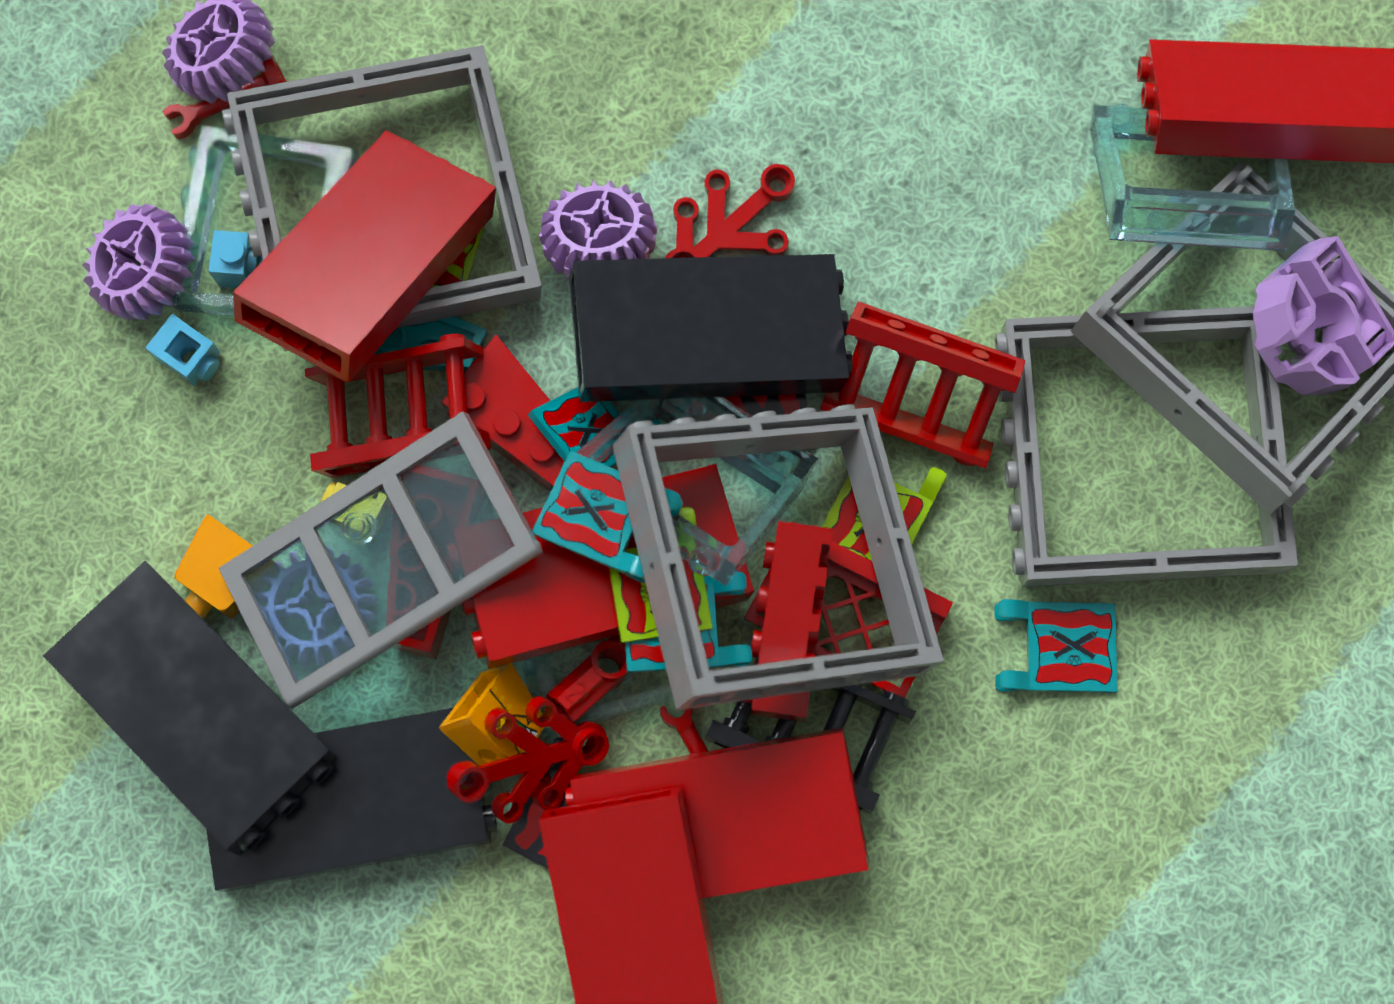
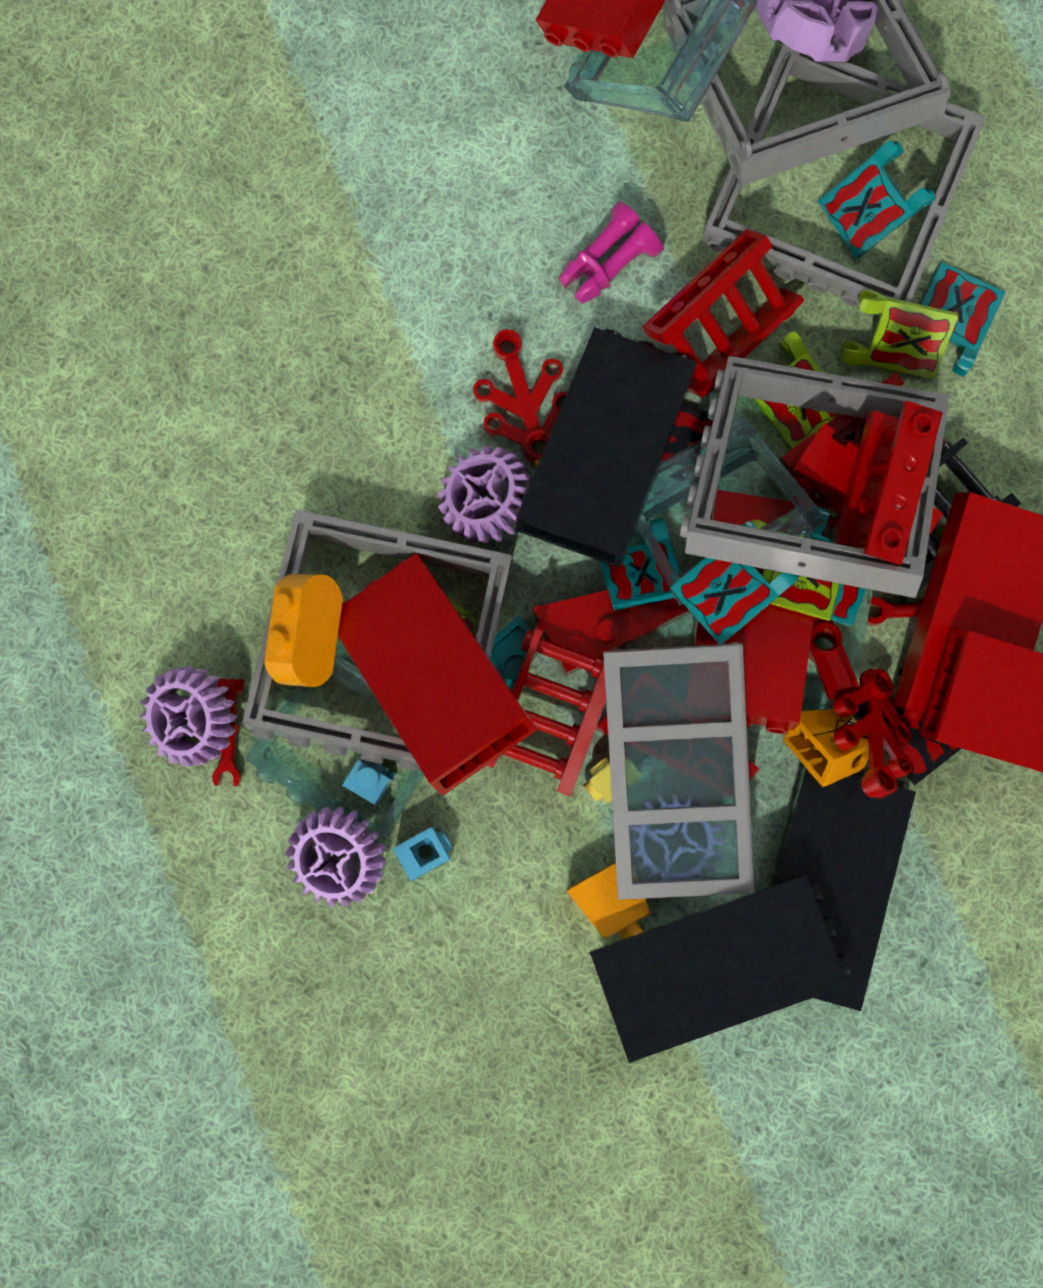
camera: 65 degrees left, 5 degrees up
(354, 108) = (303, 630): none -> light orange brick
(786, 619) = (888, 481): none -> red fence
(961, 263) = (640, 241): none -> dark pink piece
(1000, 594) = (907, 336): none -> lime flag
(1132, 488) = (869, 204): none -> flag

